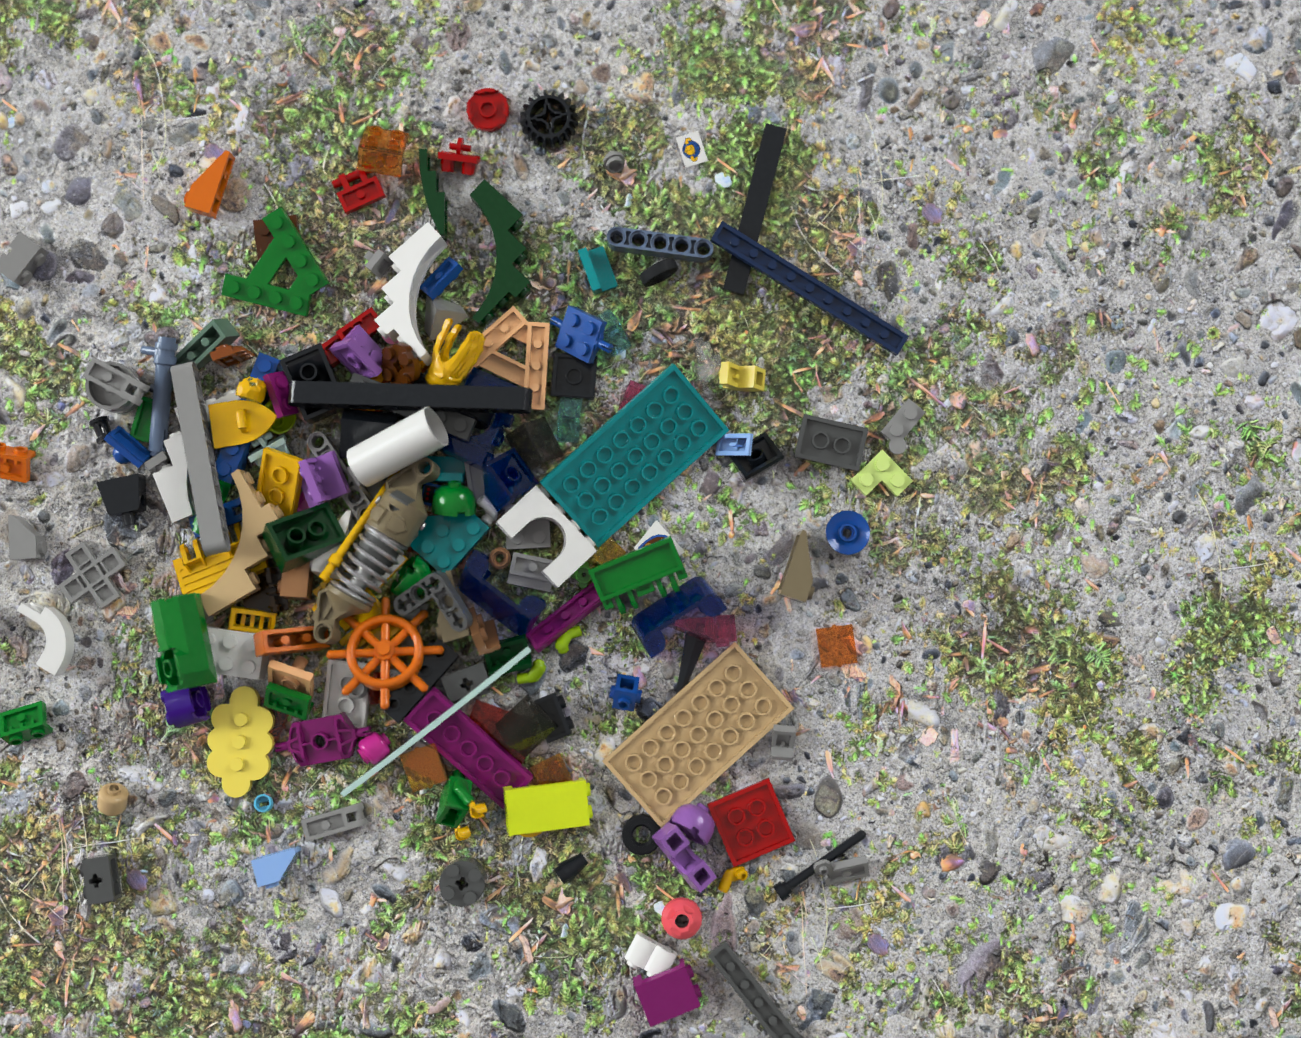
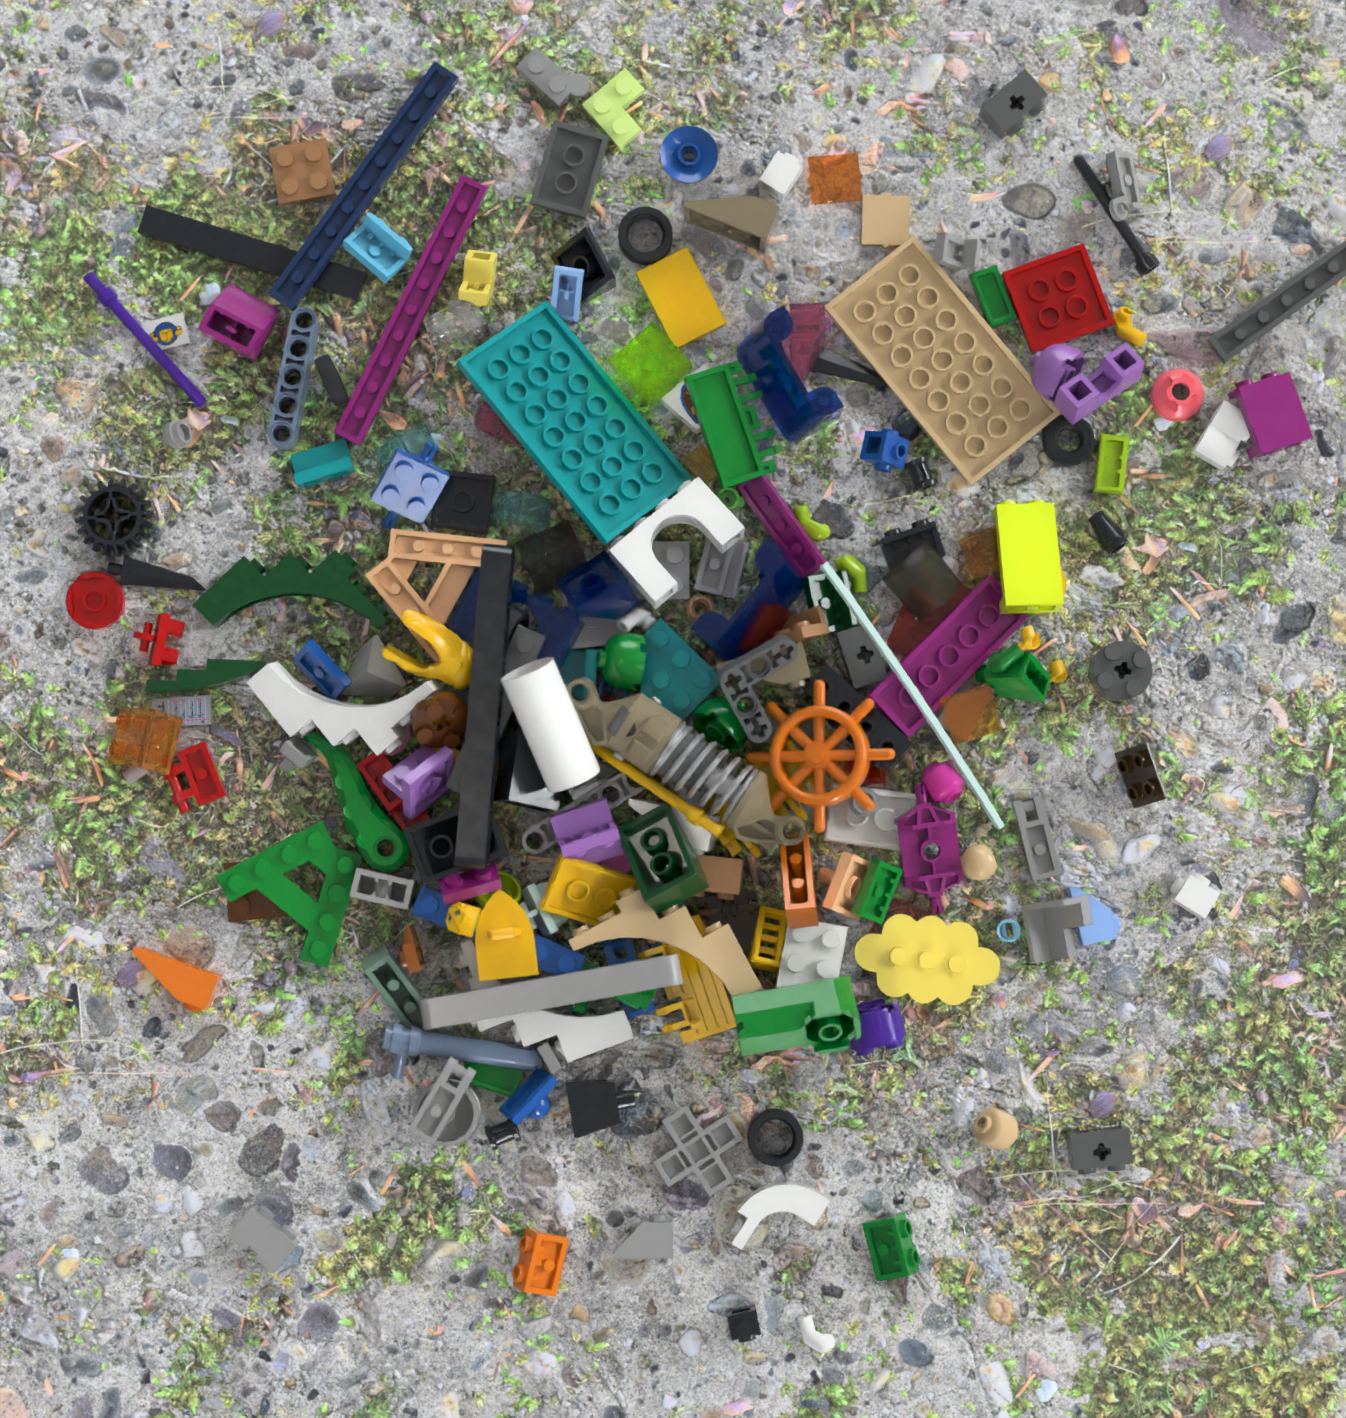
camera: 90 degrees left, 0 degrees up
(87, 627) = (759, 1153): none -> black tyre
(265, 835) = (1050, 927): none -> light grey panel
(278, 331) = (383, 888): none -> light grey brick
(294, 945) = (1194, 894): none -> white brick
(313, 777) = (978, 862): none -> tan piece
(337, 312) = (362, 812): none -> green animal
(383, 900) = (1140, 775): none -> dark brown hinge
(409, 183) = (193, 709): none -> light grey tile
(488, 608) = (766, 622): none -> clear red piece
(509, 142) = (144, 574): none -> black bar
(609, 721) = (920, 474): none -> black bush
(624, 868) = (1111, 464): none -> lime plate
(683, 511) = (651, 364): none -> clear neon green brick
(700, 201) = (239, 322): none -> magenta slope
(715, 105) = (108, 298): none -> dark purple bar
(716, 329) = (411, 310): none -> magenta plate
(736, 532) = (681, 298): none -> yellow tile
(750, 771) = (992, 296): none -> green tile
(762, 301) = (378, 248): none -> medium azure bracket
(800, 502) = (659, 218): none -> black tyre
(806, 686) = (885, 220): none -> tan piece
(818, 243) = (302, 172): none -> medium nougat plate
(835, 603) = (780, 175): none -> white brick
(912, 789) = (1020, 90): none -> dark grey brick

